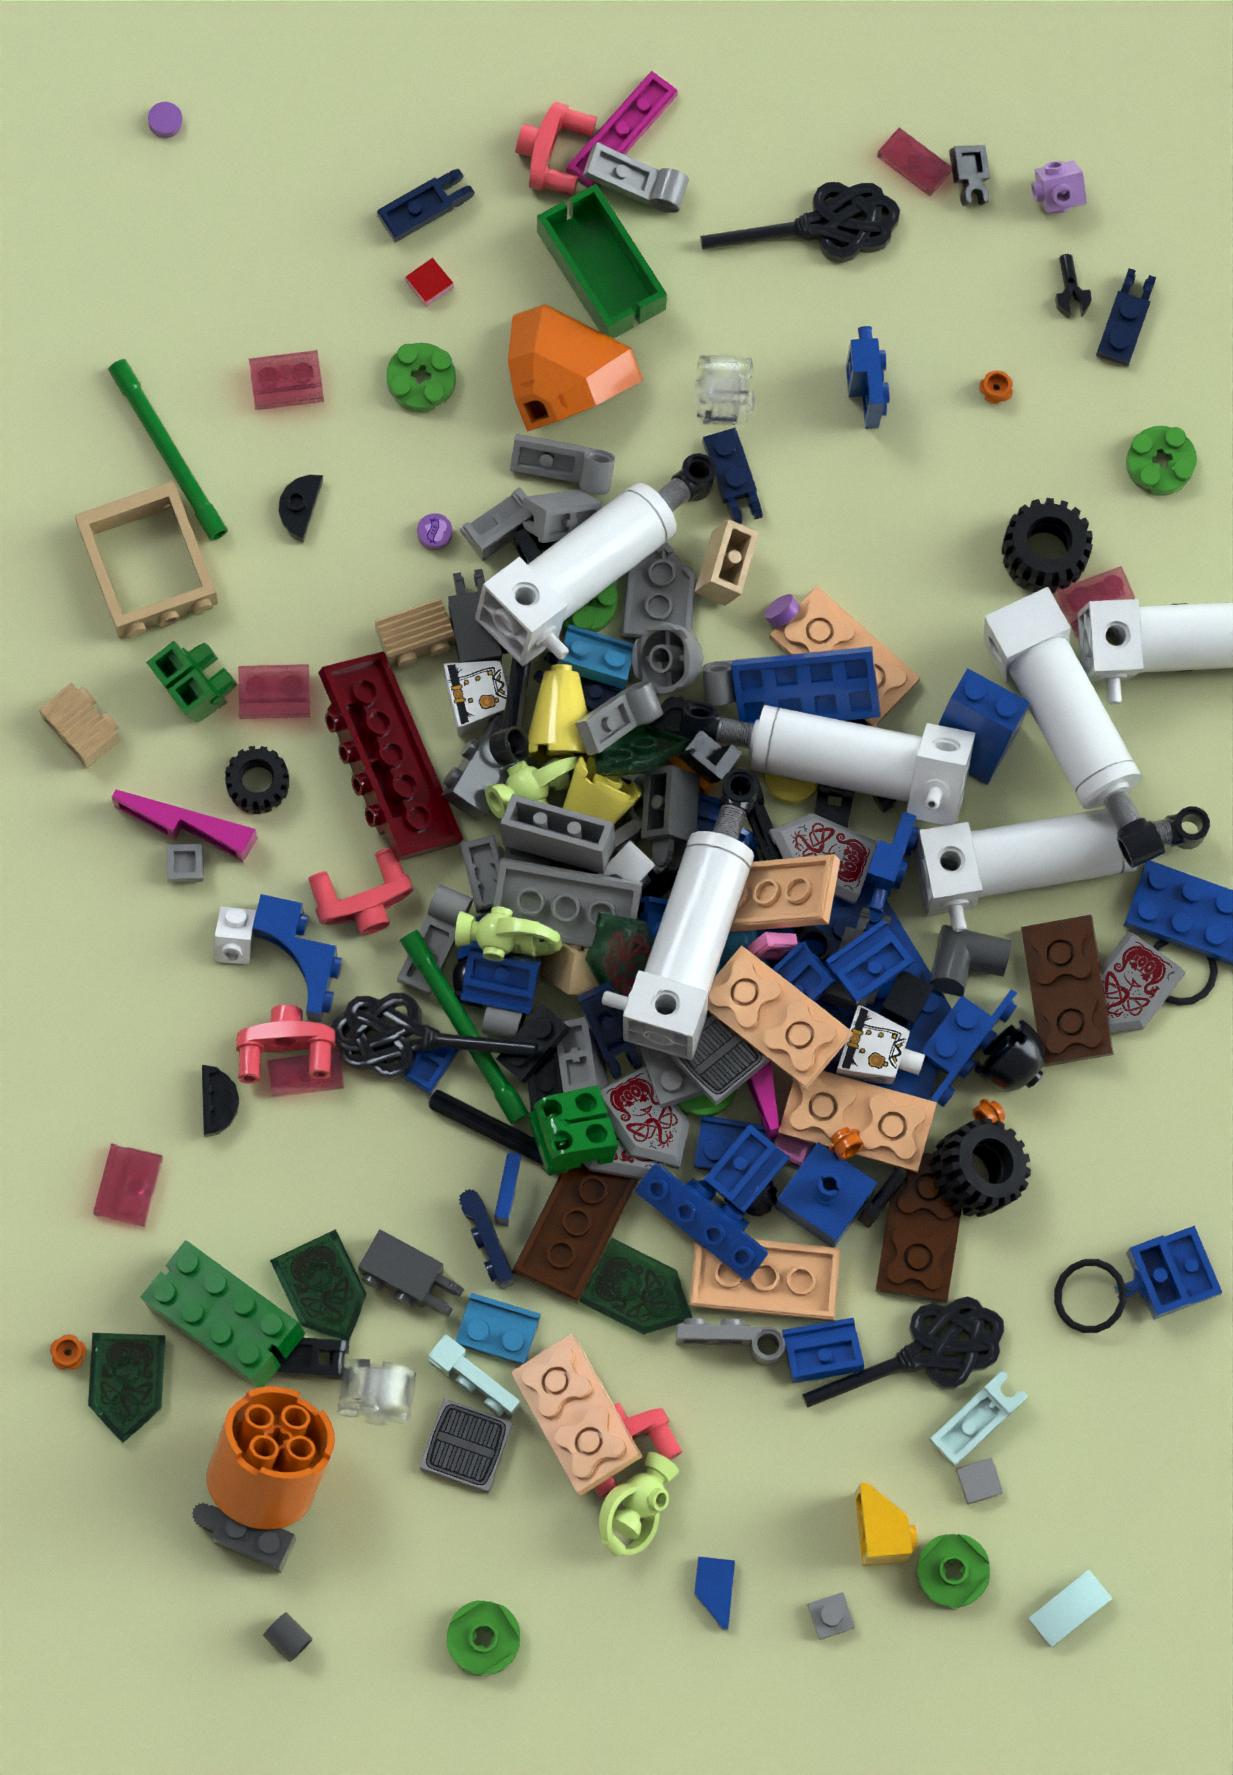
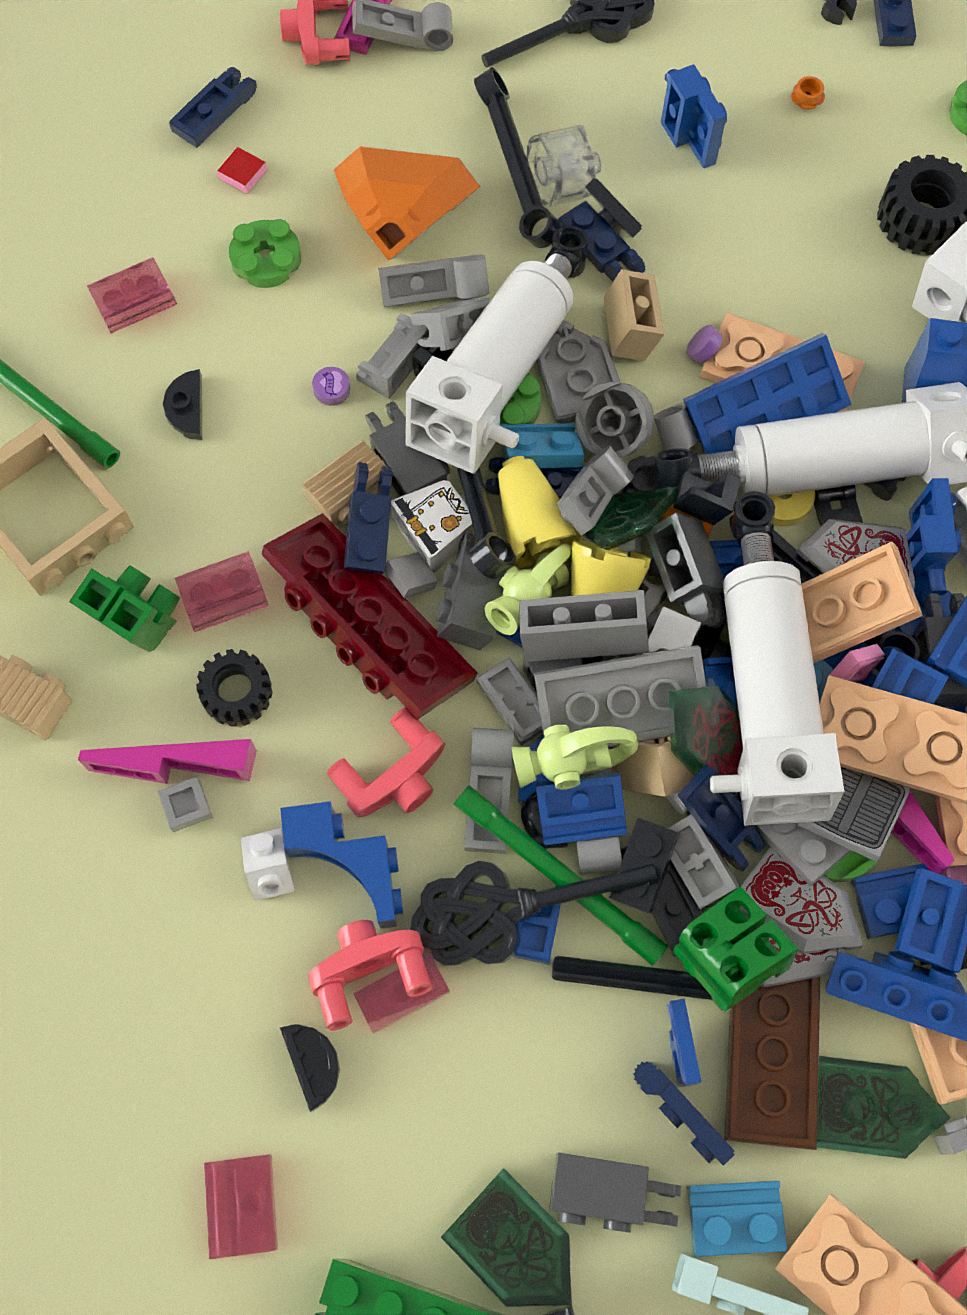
camera: 15 degrees left, 5 degrees down
(418, 677) = (368, 523): none -> dark blue hinge
(439, 733) = (411, 574): none -> light grey tile
(601, 262) = (400, 95): green piece -> none
(693, 283) = (495, 96): none -> black piece
(755, 449) = (613, 211): none -> black plate

